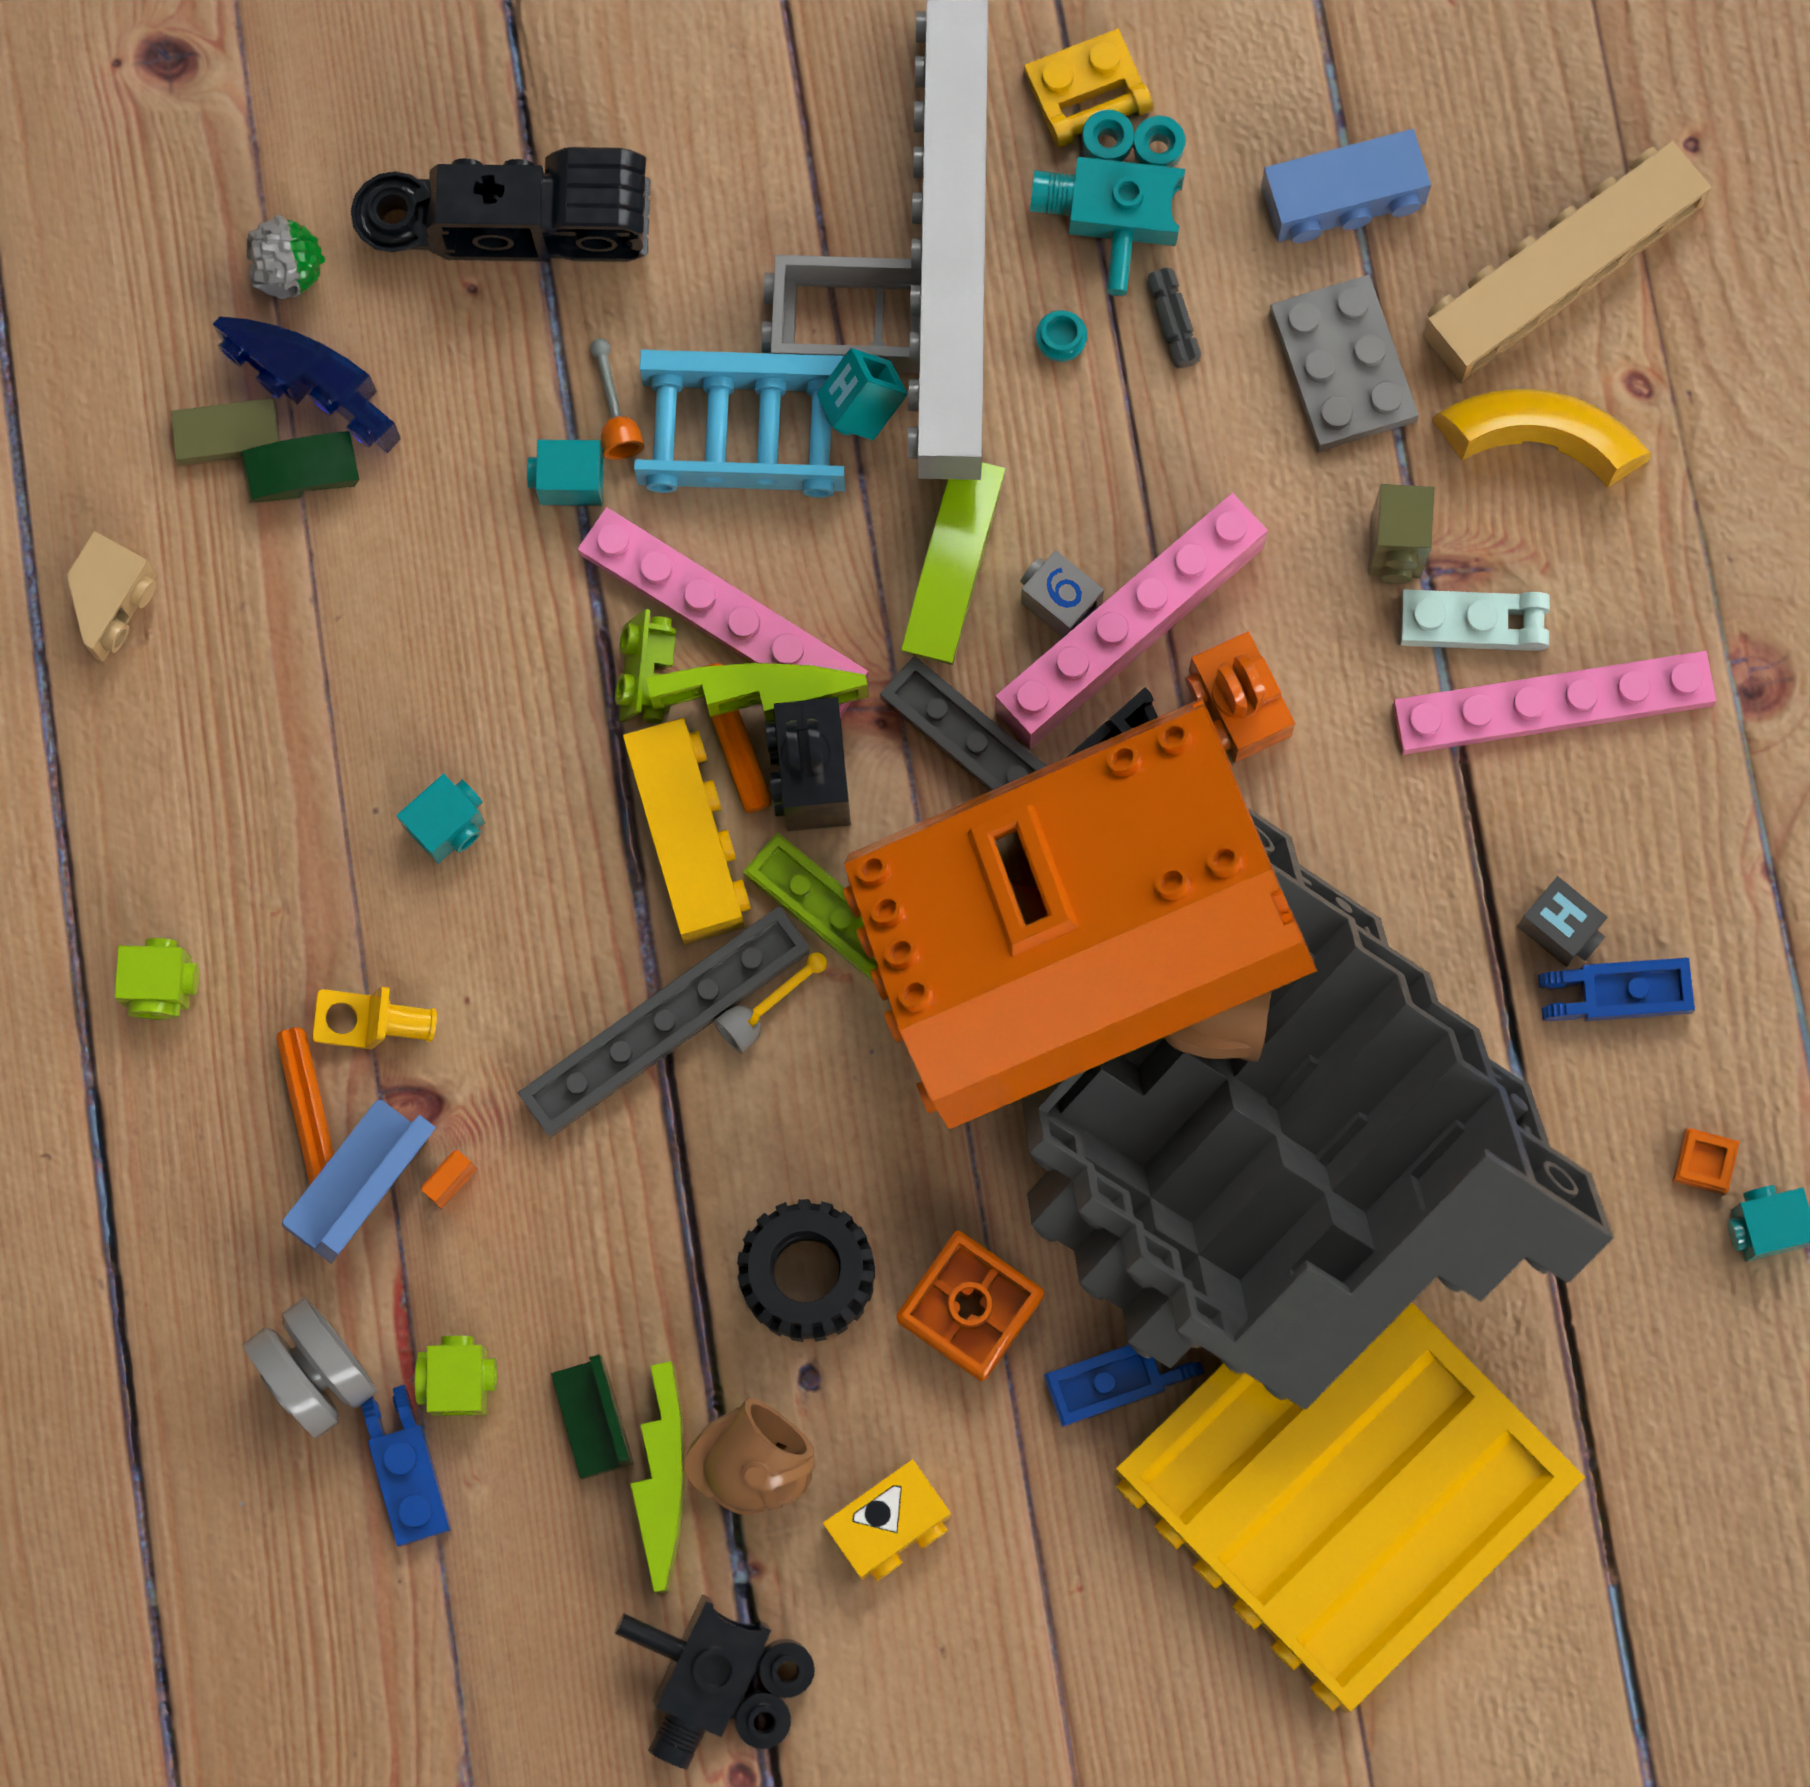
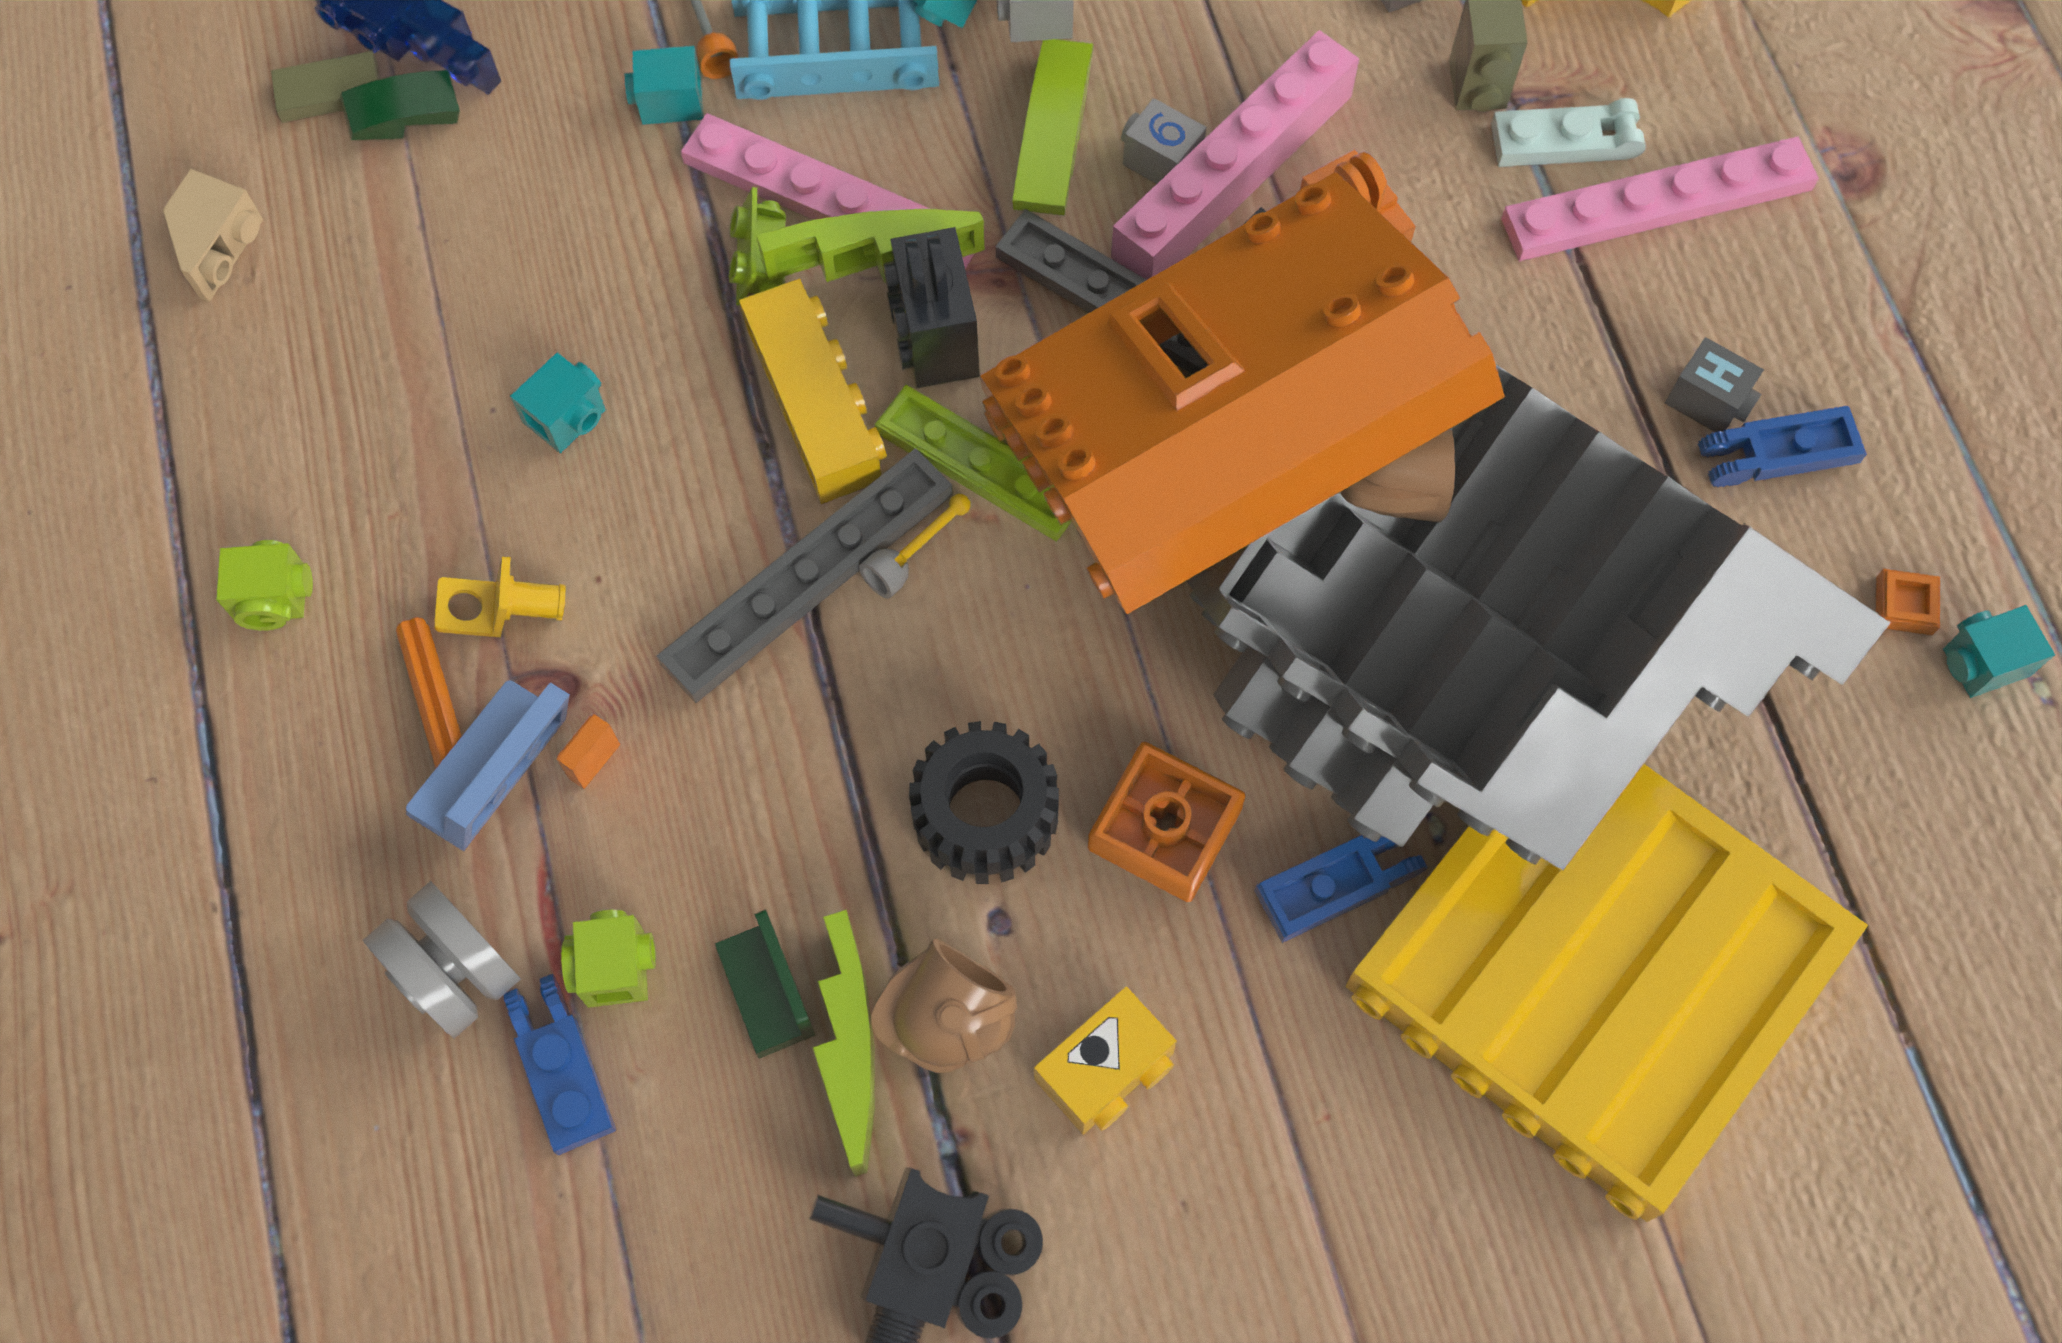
camera: 10 degrees left, 10 degrees down
(741, 760) = (861, 322): orange axle -> none

